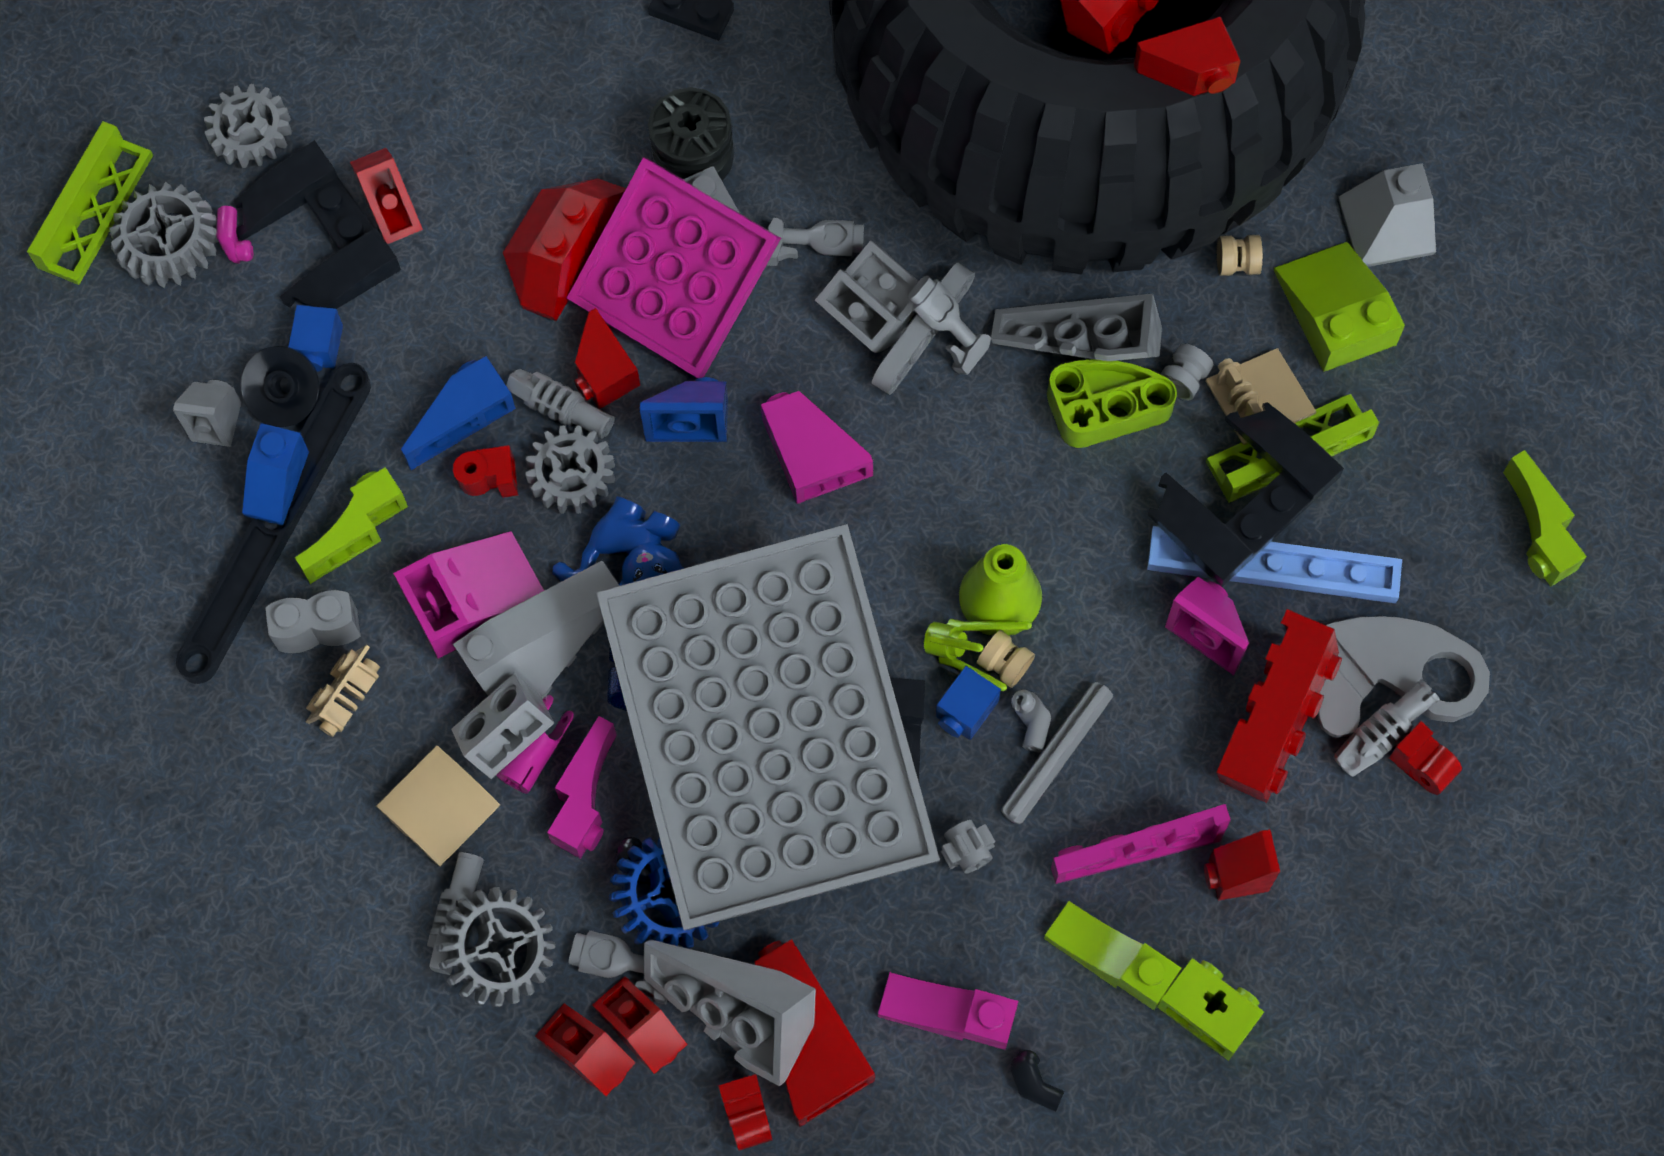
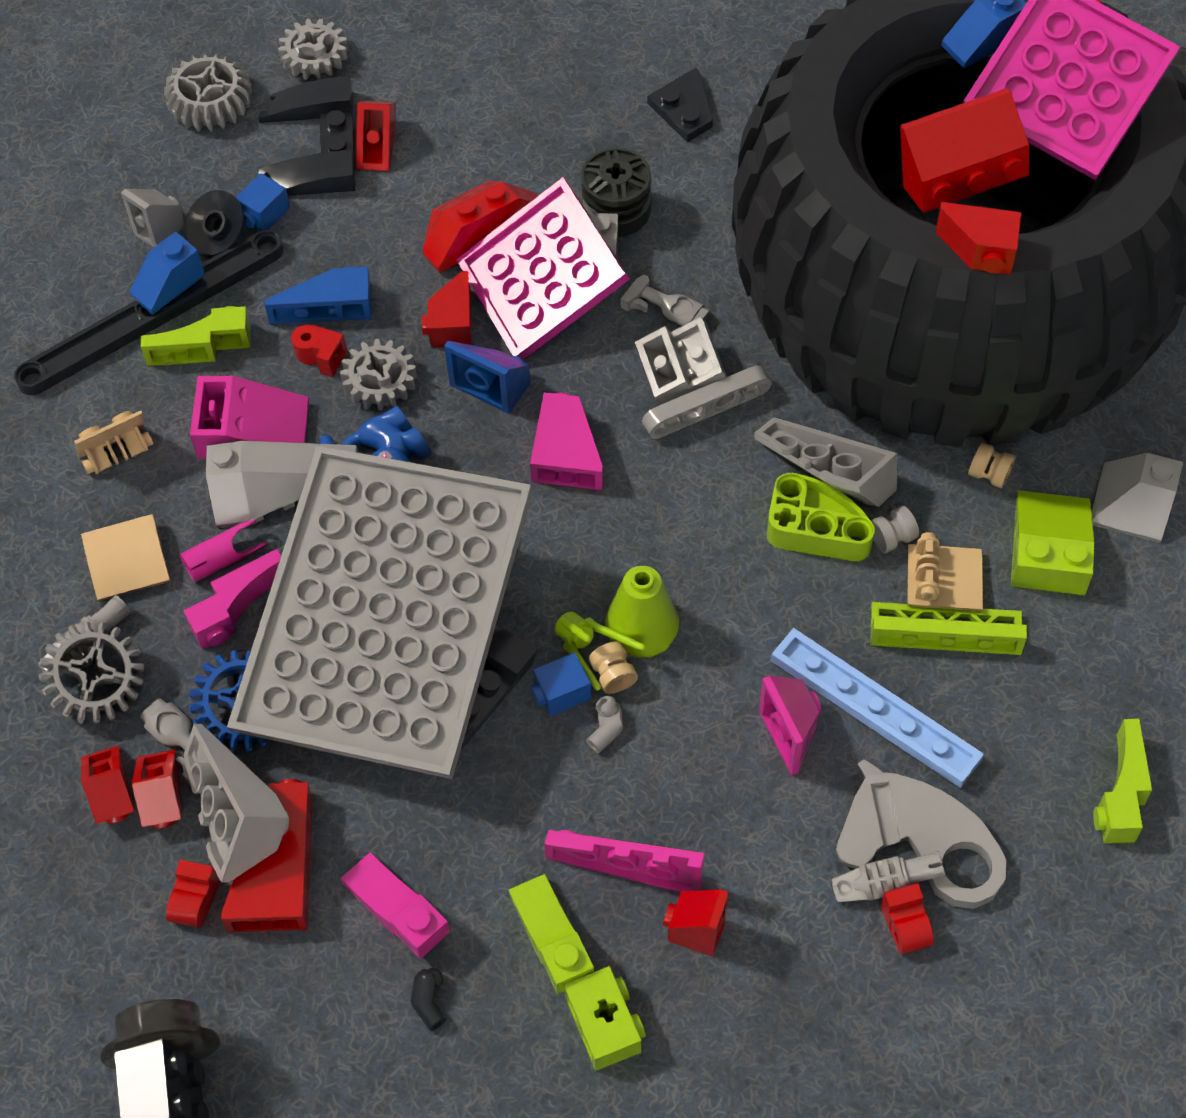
camera: 30 degrees right, 10 degrees down
(76, 198) = (168, 47): lime fence -> none
(227, 237) = (249, 111): dark pink arm -> none
(303, 624) = (125, 386): light grey brick -> none
(502, 726) = (203, 520): light grey brick -> none
(558, 402) = (402, 326): light grey hinge -> none
(942, 313) = (723, 391): light grey piece -> none
(968, 846) = (491, 789): light grey gear -> none
(1057, 753) = (609, 759): light grey axle -> none
(1226, 548) = (933, 647): black wedge -> none
(1280, 707) = (806, 810): red wedge -> none

